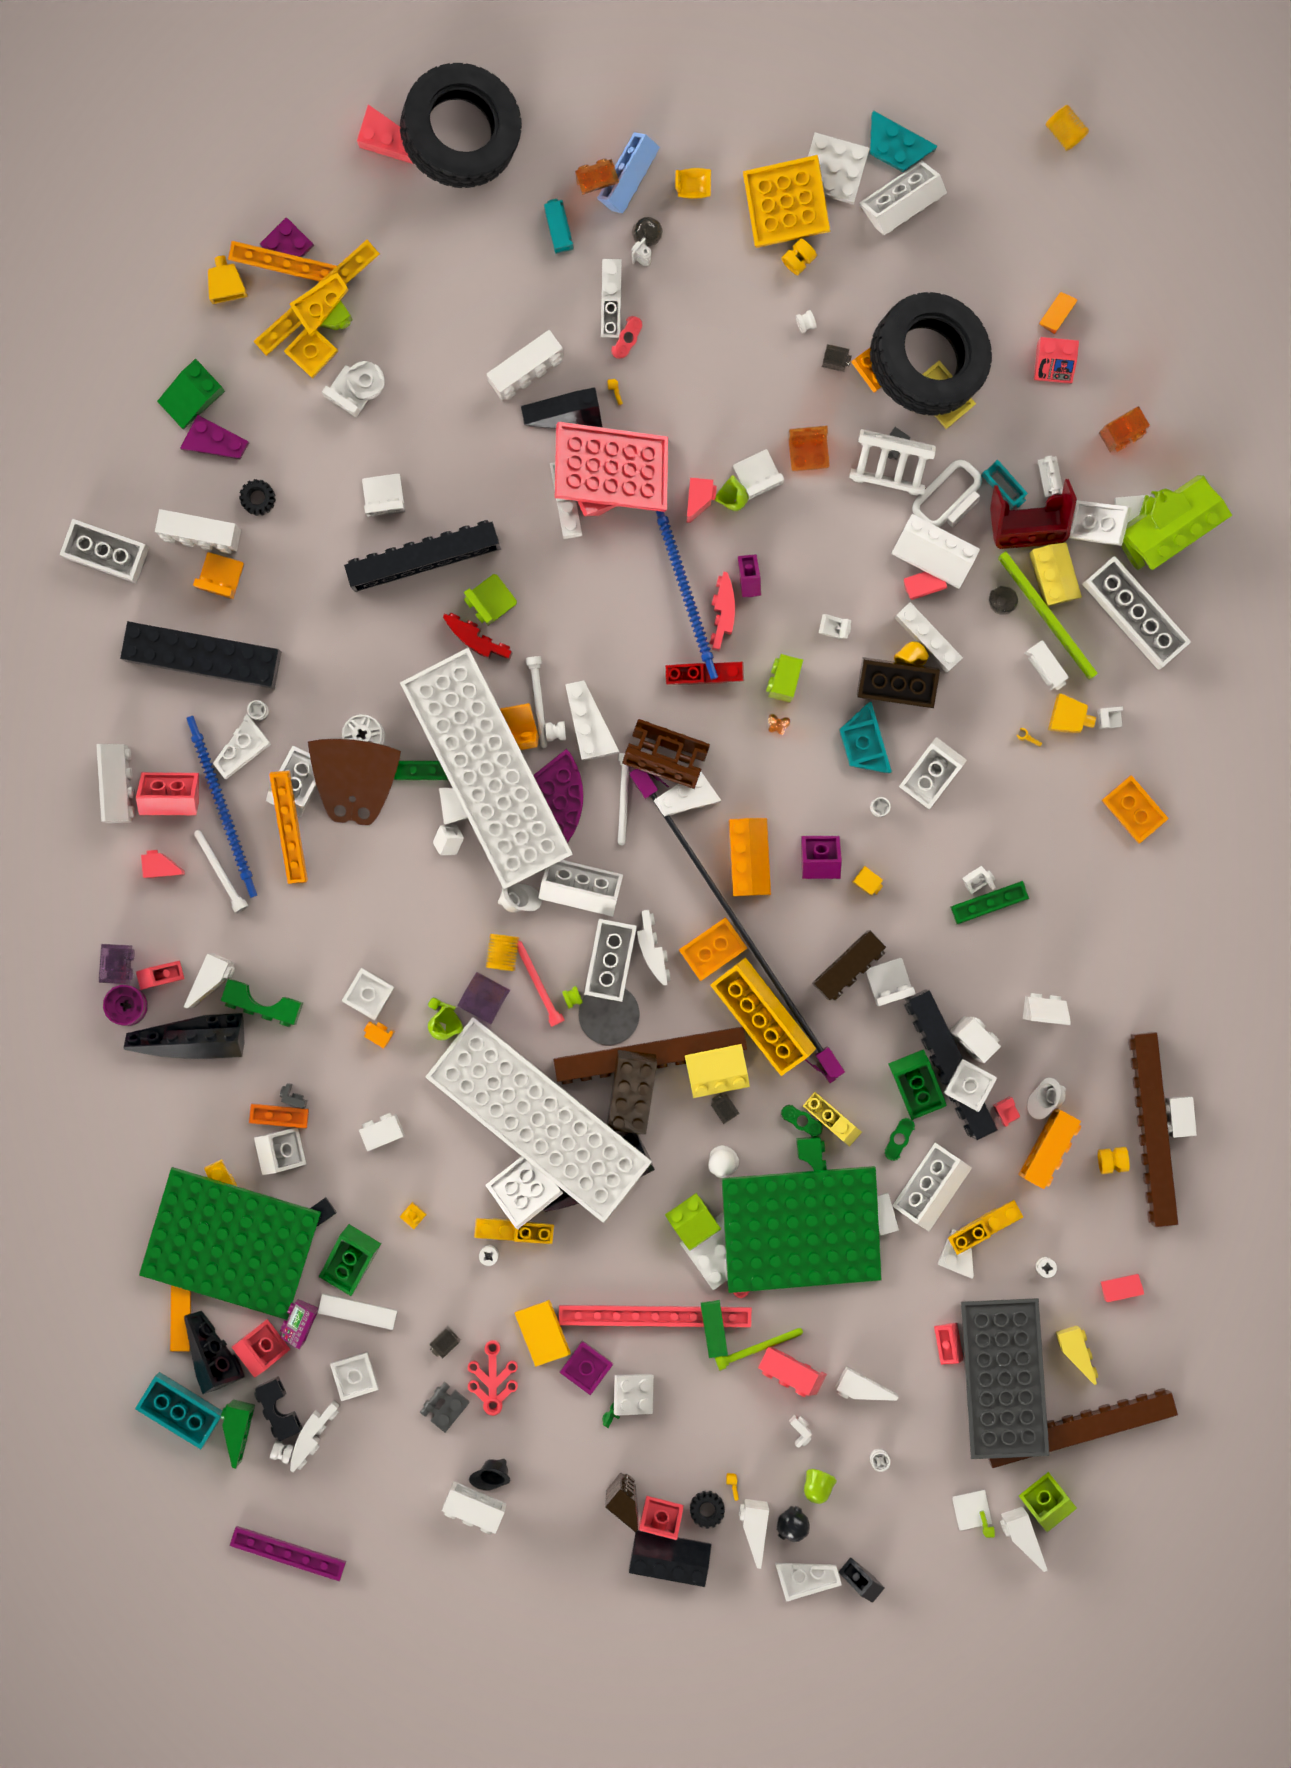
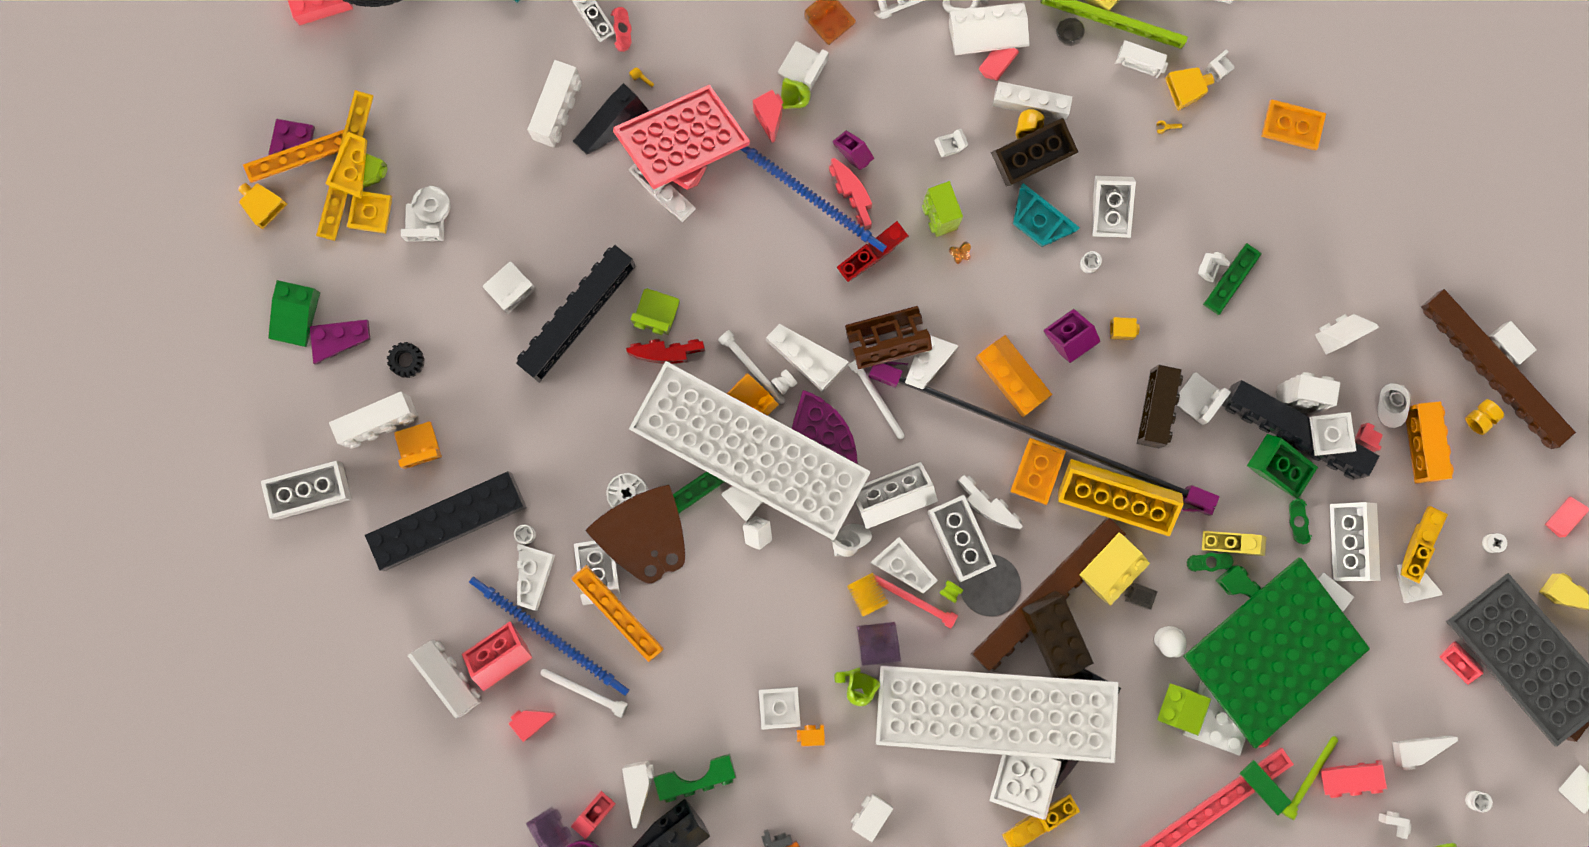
camera: 35 degrees left, 5 degrees down
(549, 948) = (904, 565): none -> white wing

